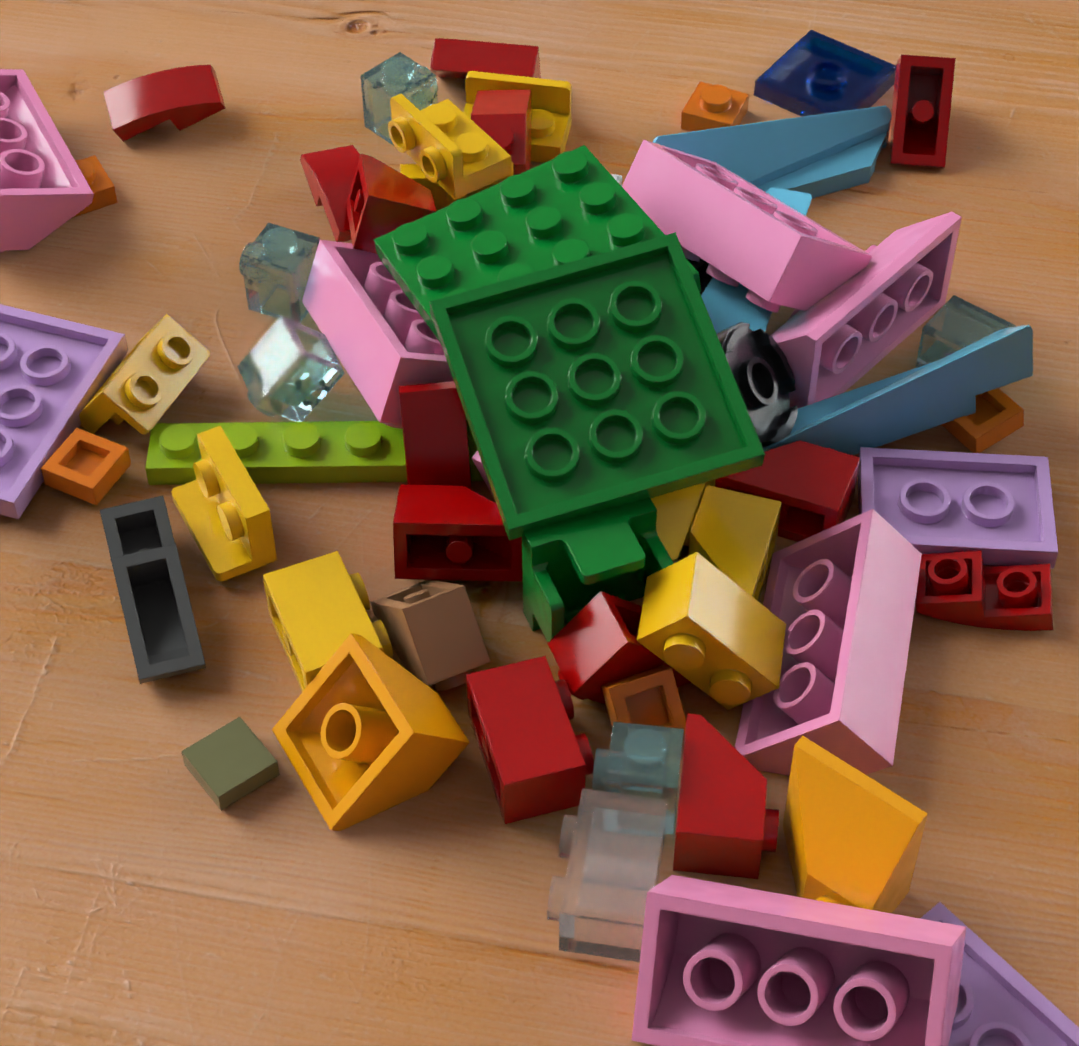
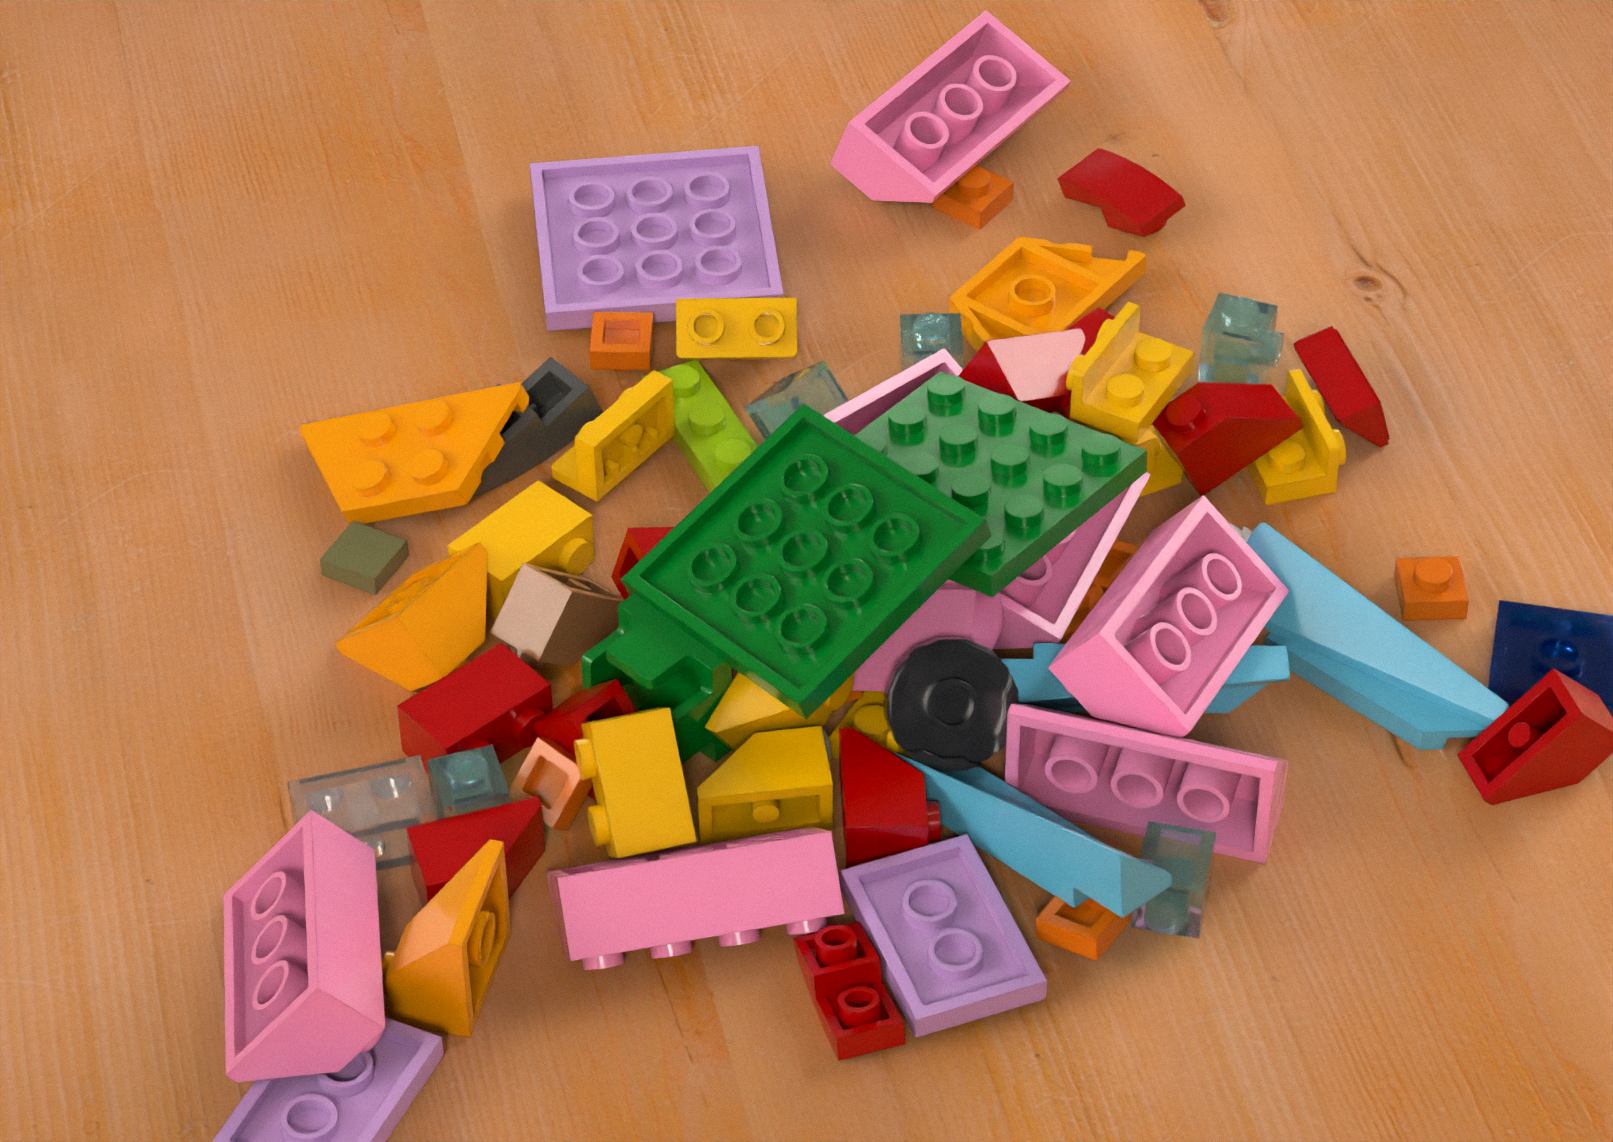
camera: 65 degrees right, 5 degrees down
(133, 670) = (412, 453): none -> light orange wing
(244, 186) = (1040, 289): none -> light orange wing

